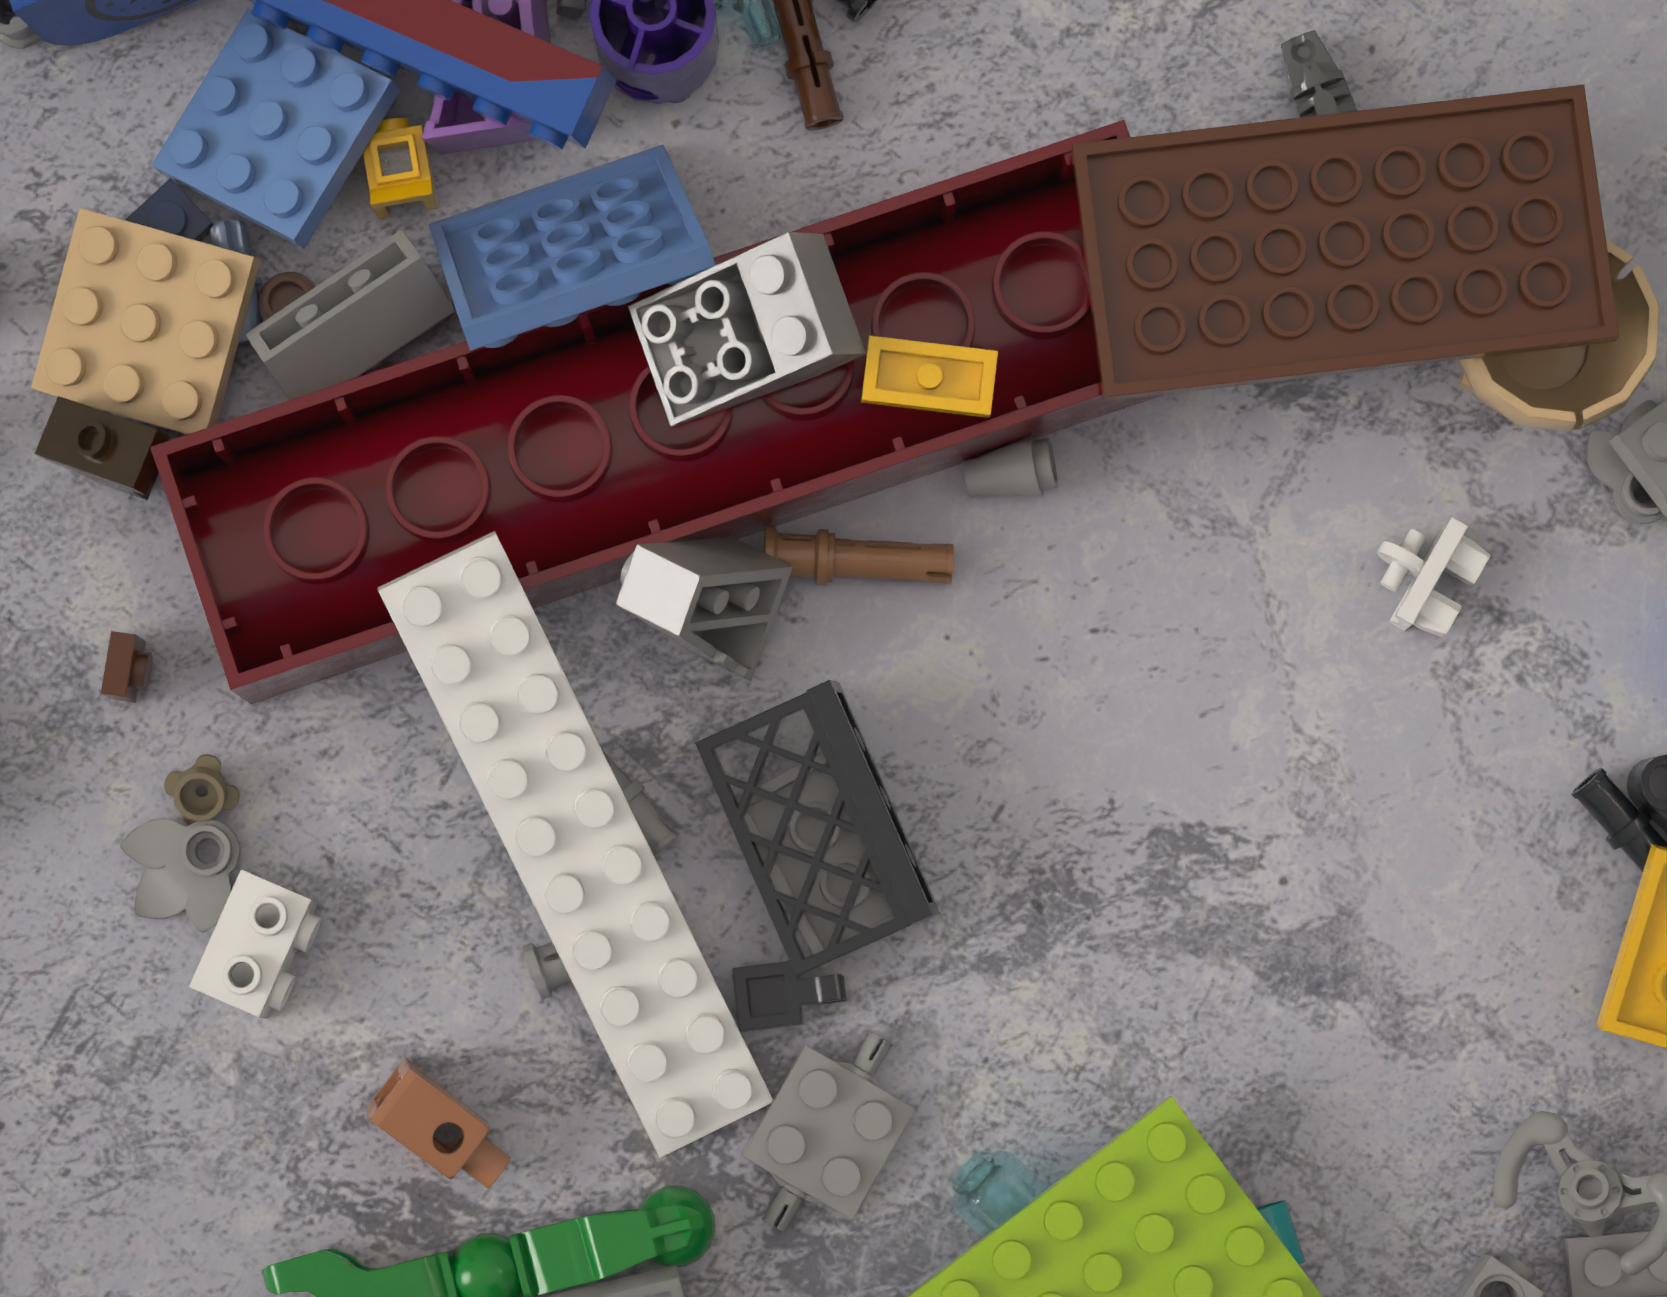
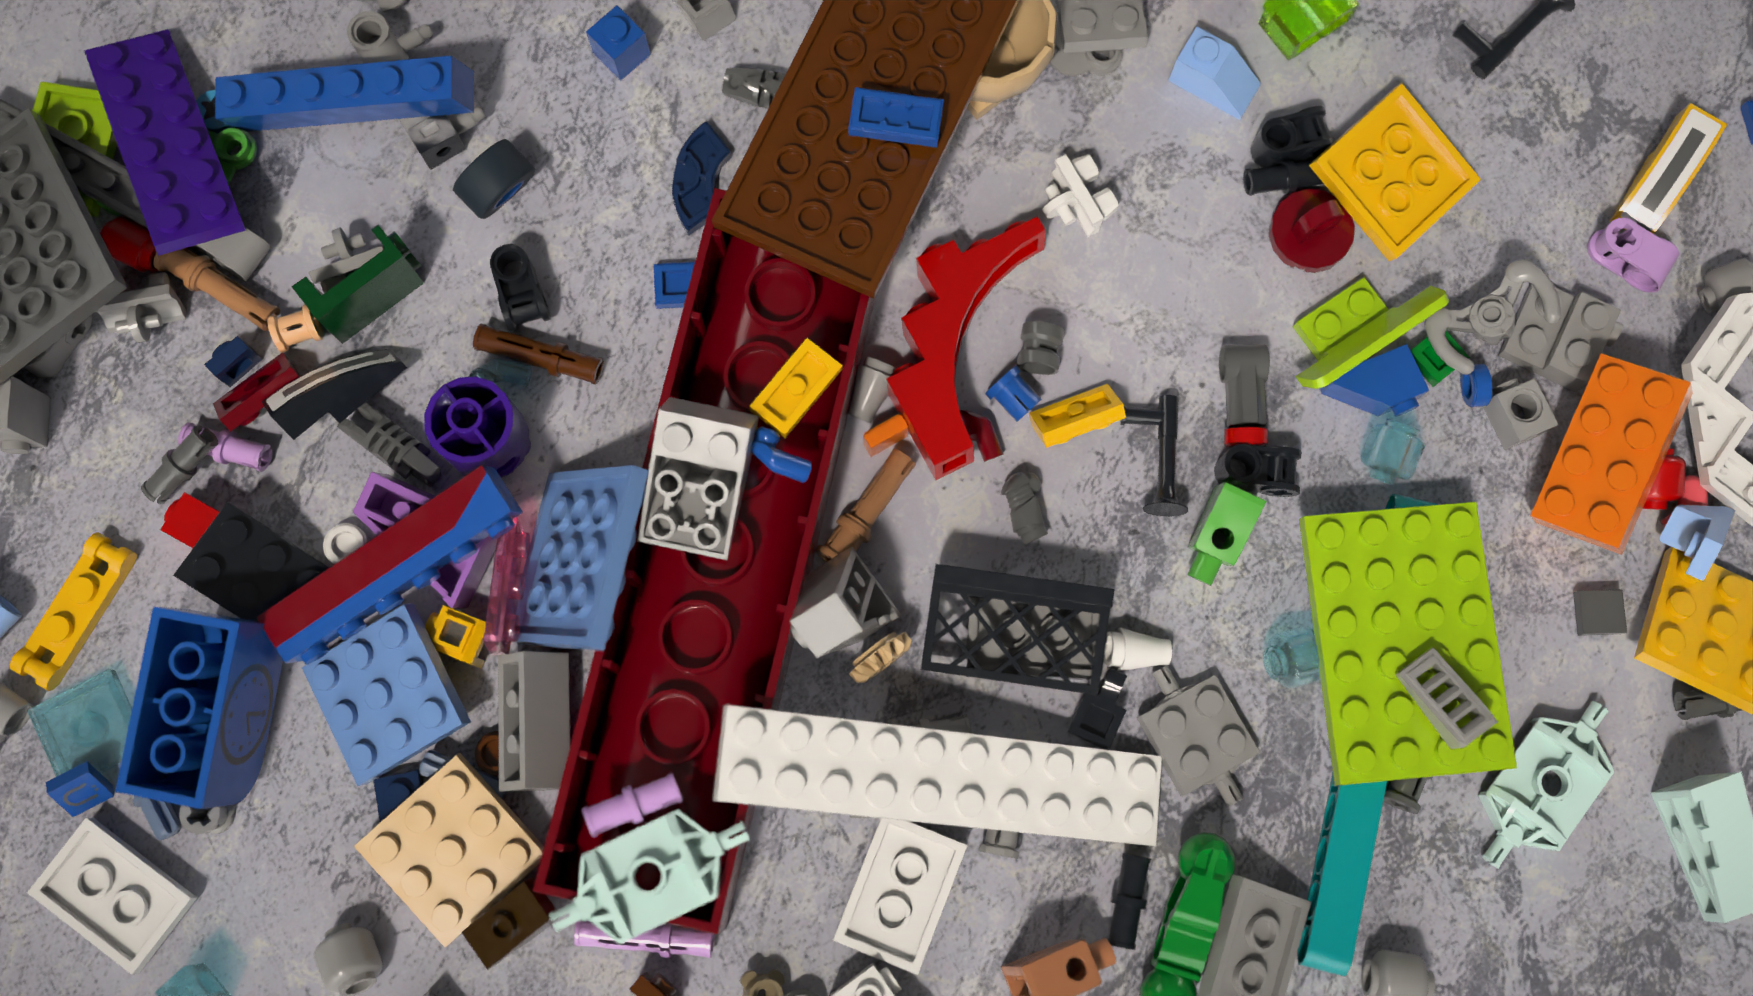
camera: 60 degrees left, 5 degrees down
(180, 609) = (663, 939): none -> lavender pin
(290, 601) = (689, 870): none -> light aqua plate
(315, 497) = (632, 804): none -> lavender pin
(415, 883) = (900, 893): none -> white plate
(485, 187) = (506, 587): none -> clear pink plate
(573, 1163) = (1128, 901): none -> black pin
(682, 685) = (880, 656): none -> tan gear
(825, 410) = (777, 460): none -> blue arm
(884, 992) = (1135, 650): none -> white cone
(963, 523) = (885, 435): none -> orange tile
(980, 749) = (1024, 506): none -> dark grey arm
(993, 139) = (672, 284): none -> blue tile
(1045, 631) = (982, 431): none -> dark red arm
(1116, 650) = (1006, 389): none -> blue bush
(1124, 1004) = (1233, 514): none -> bright green torso
(1134, 506) = (935, 334): none -> red arch
(1138, 745) = (1077, 415): none -> yellow plate
(1154, 81) = (696, 176): none -> dark blue tile
(1206, 860) = (1166, 418): none -> black piece
(1210, 641) = (1040, 348): none -> dark grey wheel
(1213, 1020) = (1267, 468): none -> black piece
(1242, 973) = (1245, 435): none -> red tile
(1321, 926) = (1244, 373): none -> dark grey piece
(1339, 1168) = (1392, 451): none -> clear light blue head
(1342, 285) = (895, 117): none -> blue plate
(1419, 1102) = (1381, 384): none -> blue slope
(1474, 1030) = (1356, 327): none -> lime plate
(1486, 1152) = (1430, 364): none -> green plate
(1494, 1228) = (1476, 386): none -> blue tile
(1574, 901) = (1311, 231): none -> dark red tile

